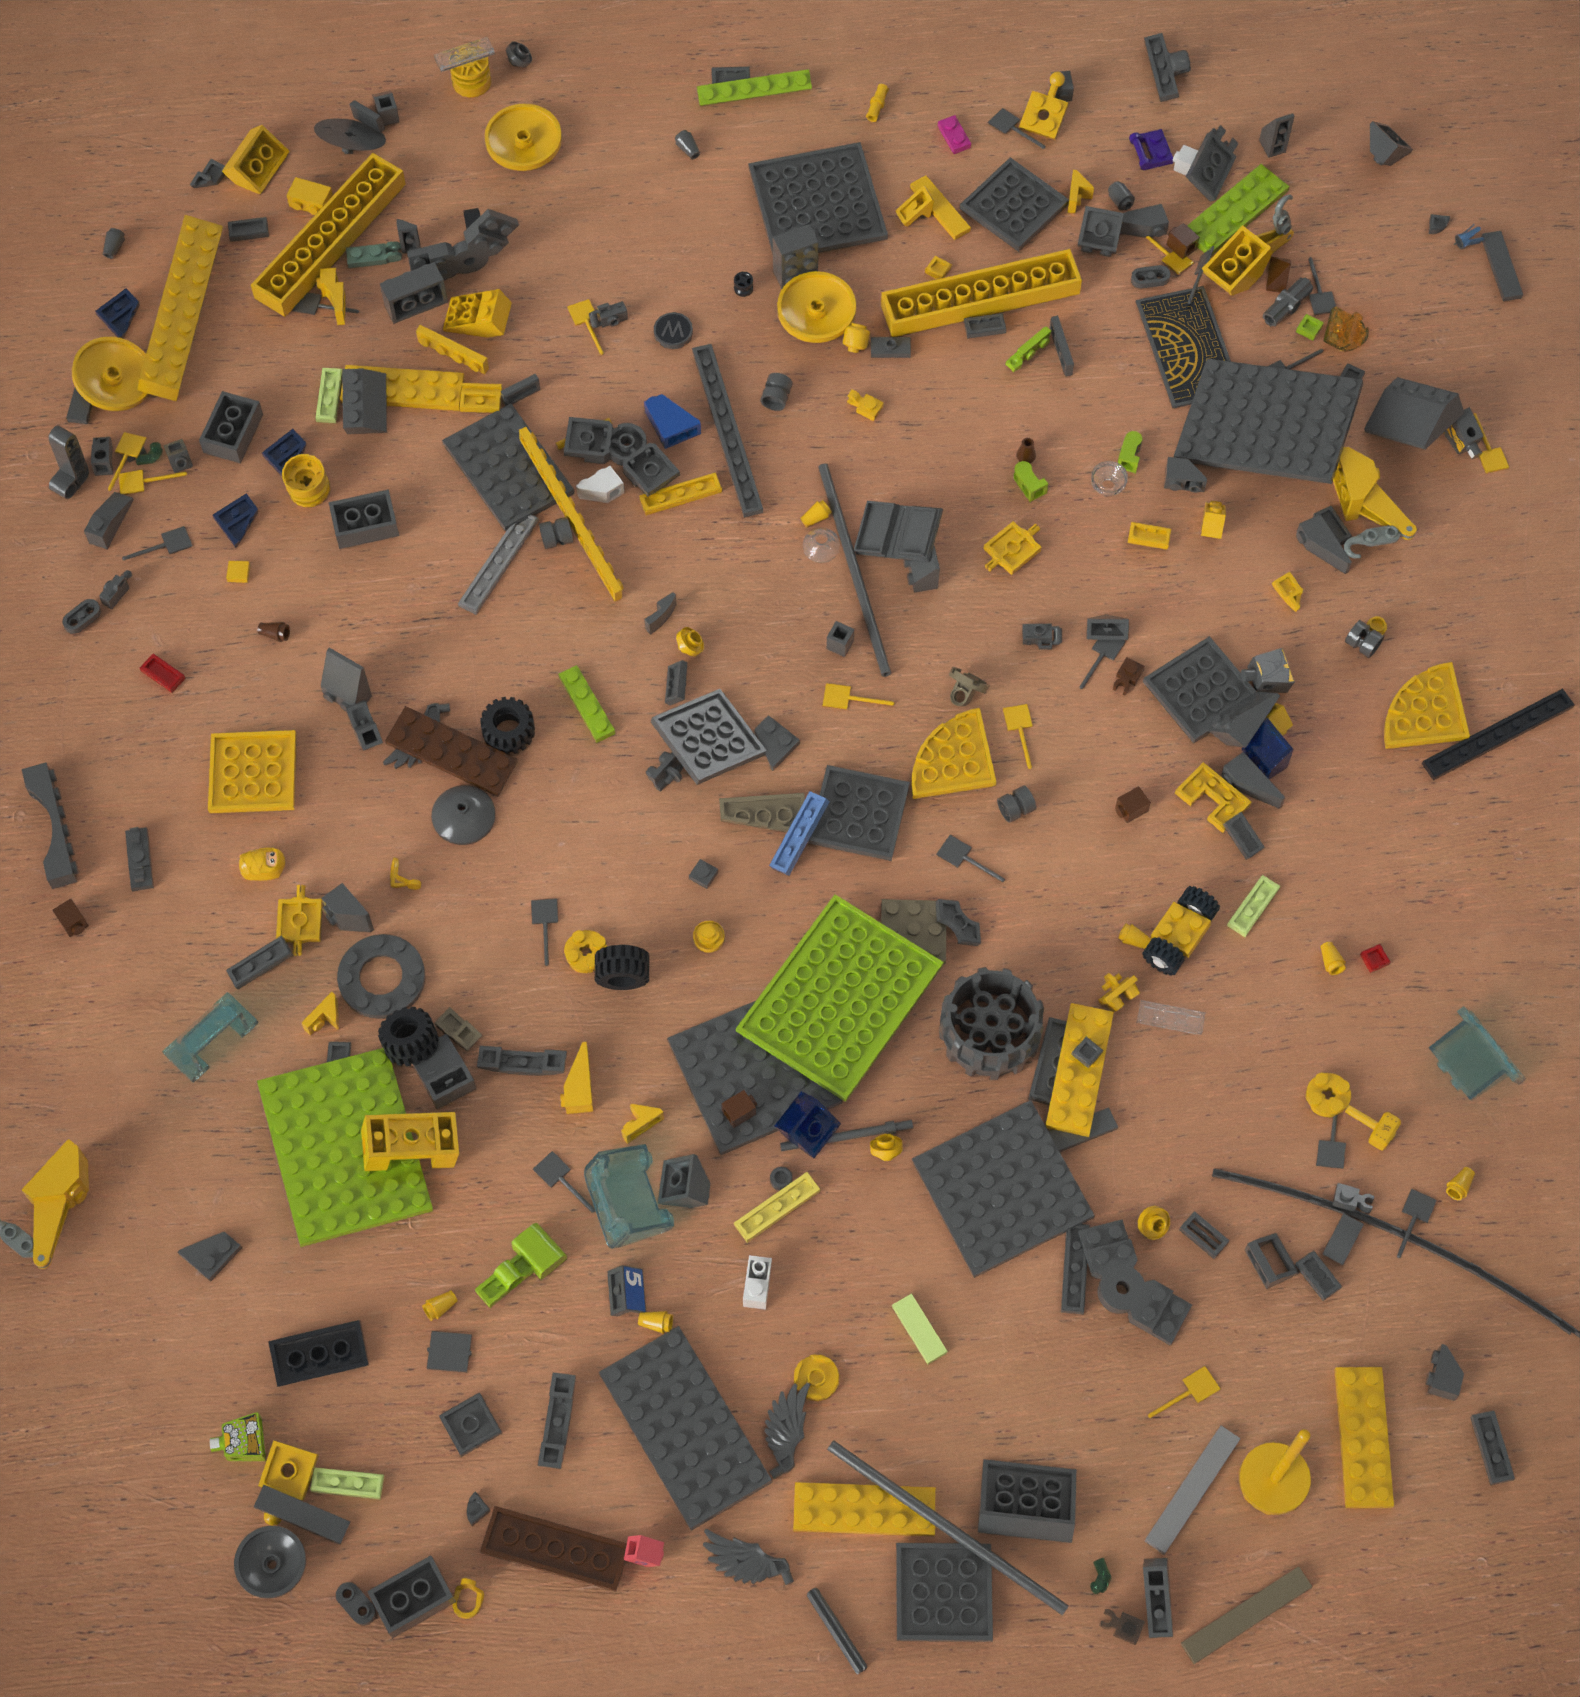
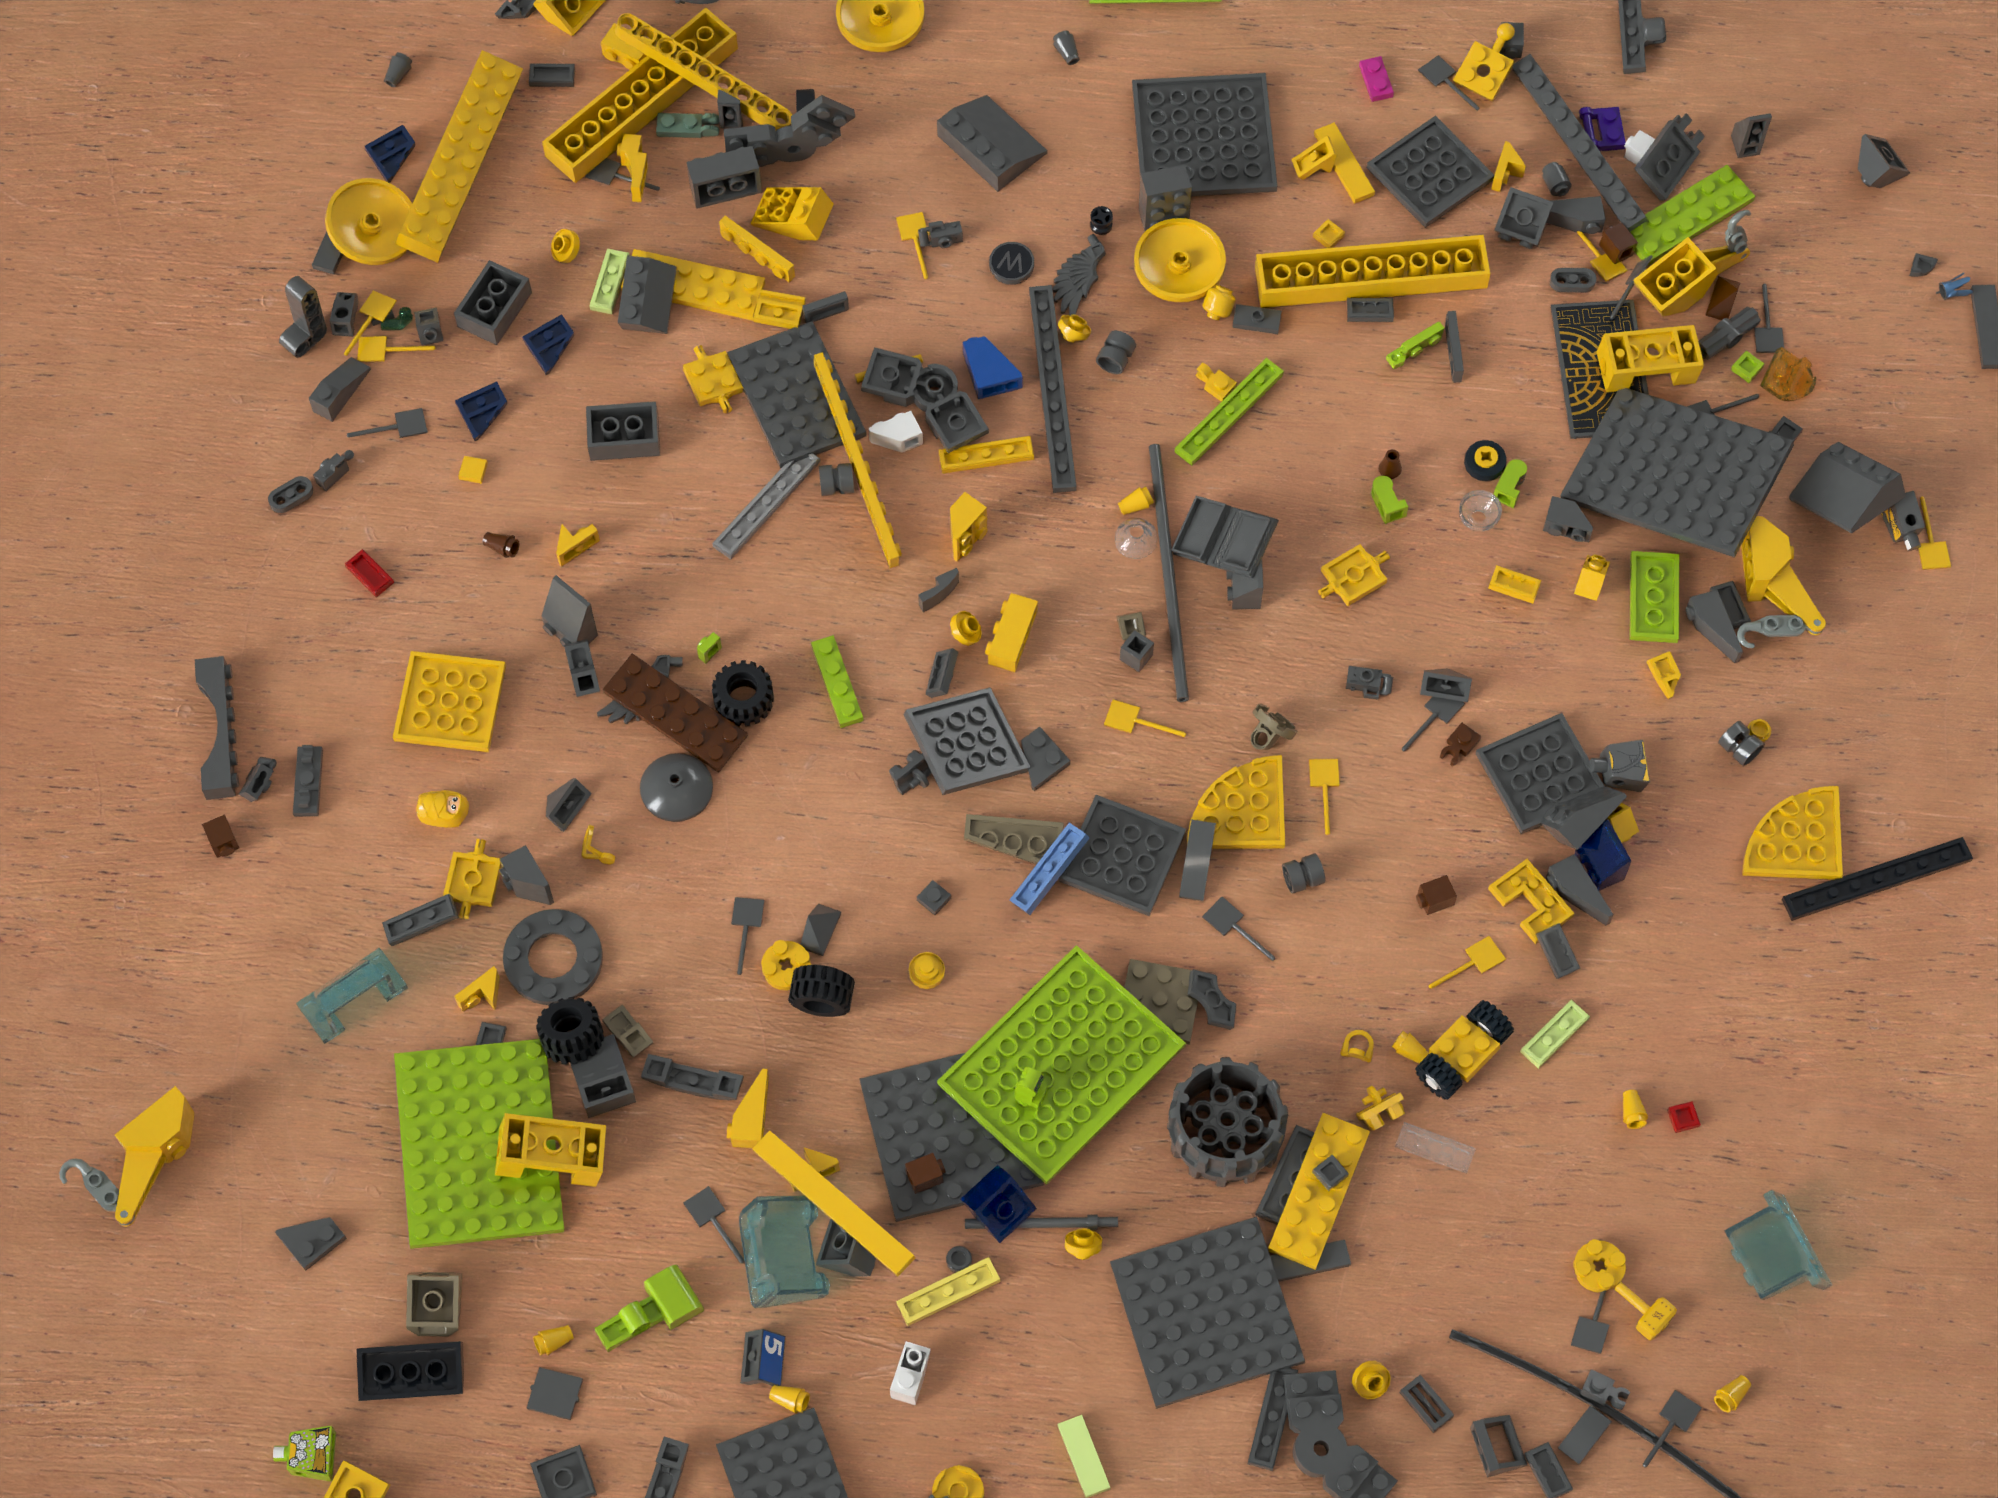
camera: 10 degrees right, 0 degrees up
(95, 863) = (258, 779): none -> dark grey piece
(285, 370) = (565, 246): none -> yellow plate
(305, 471) = (561, 366): yellow wheel -> none
(329, 1291) = (433, 1303): none -> dark tan slope
(336, 623) = (572, 546): none -> yellow slope
(370, 842) = (566, 803): none -> dark grey slope
(374, 200) = (697, 64): none -> yellow beam
(433, 464) = (713, 378): none -> yellow plate
(470, 691) = (709, 647): none -> lime plate
(609, 916) = (819, 929): none -> dark grey slope
(635, 231) = (989, 141): none -> dark grey slope
(666, 1147) = (834, 1203): none -> yellow tile
(675, 554) = (967, 524): none -> yellow slope
(730, 639) = (1011, 632): none -> yellow brick
(732, 333) = (1078, 276): none -> dark grey animal
(737, 376) = (1074, 328): none -> yellow plate
(818, 1021) = (1030, 1087): none -> lime leg
(829, 616) = (1129, 623): none -> dark tan slope
(877, 102) = (1293, 28): yellow pin -> none
(881, 427) = (1228, 411): none -> lime plate
(924, 806) = (1197, 860): none -> dark grey slope
(1098, 950) = (1358, 1053): none -> yellow piece
(1108, 443) = (1485, 469): none -> black wheel
(1134, 163) = (1579, 143): none -> dark grey plate
(1181, 849) = (1482, 954): none -> yellow piece
(1208, 329) = (1626, 356): none -> yellow plate
(1268, 528) = (1654, 597): none -> lime plate

